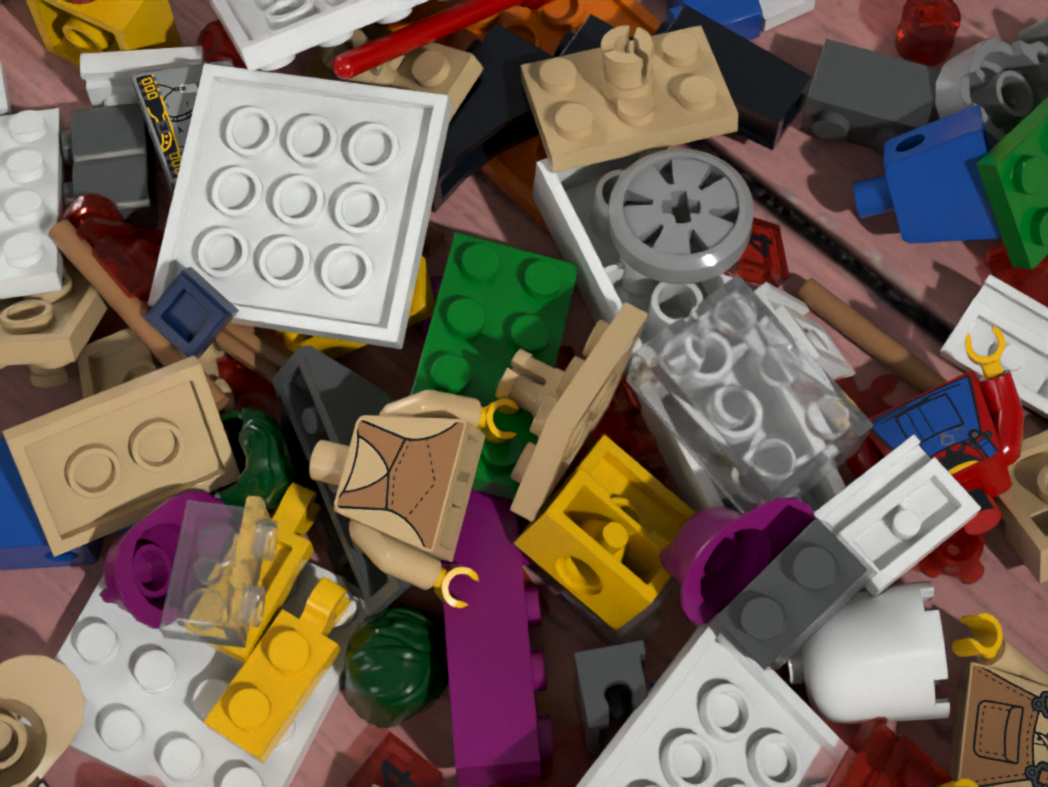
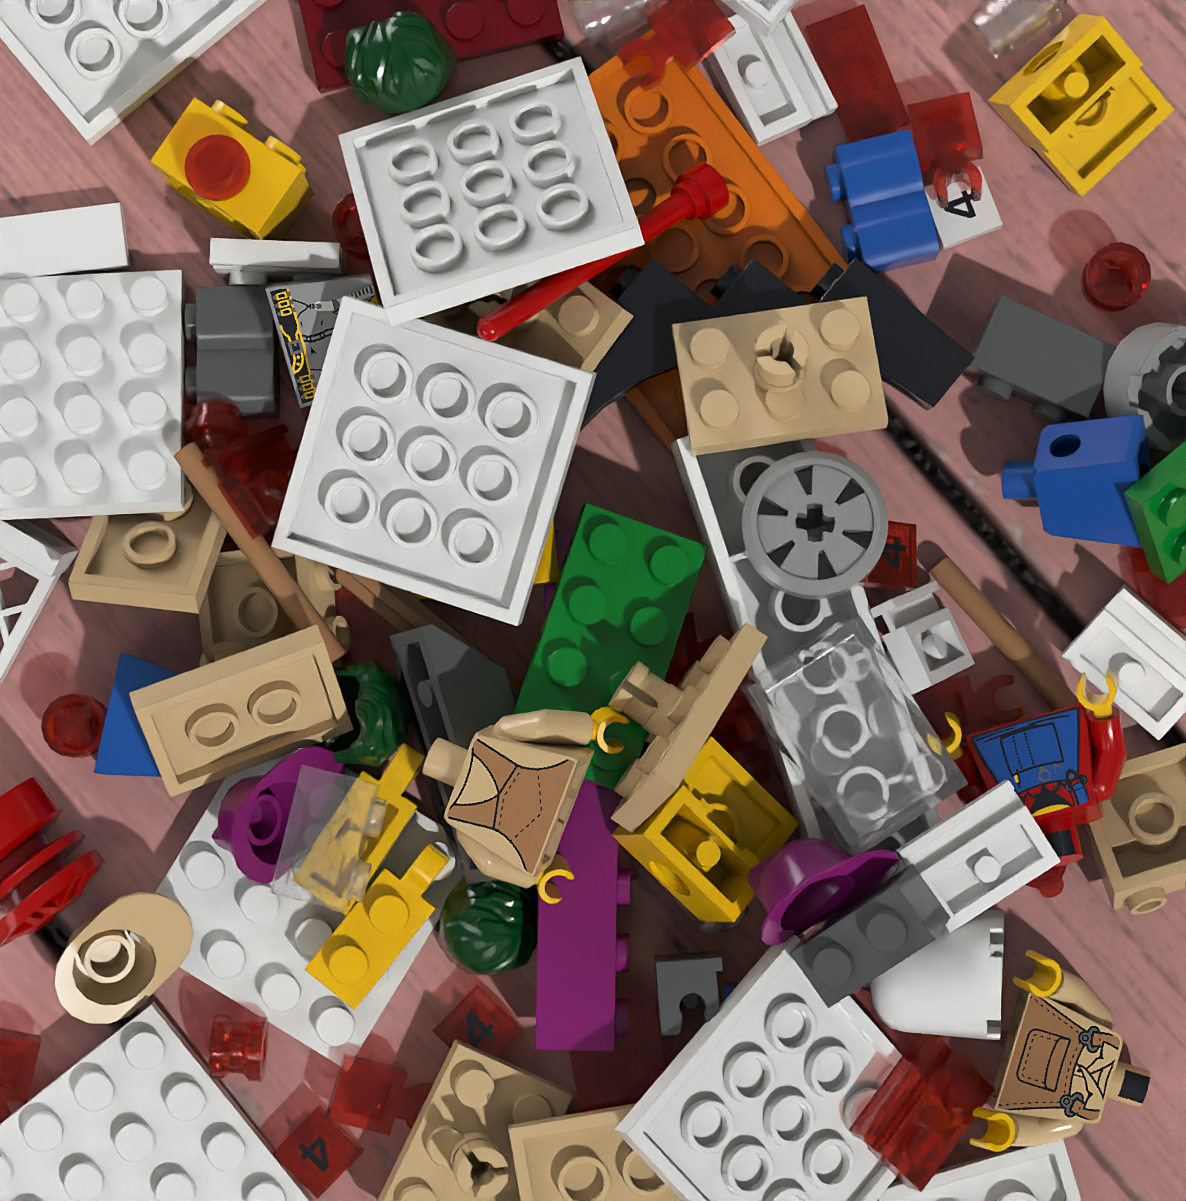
camera: 10 degrees right, 20 degrees up
(191, 313) = (315, 567): dark blue tile -> none

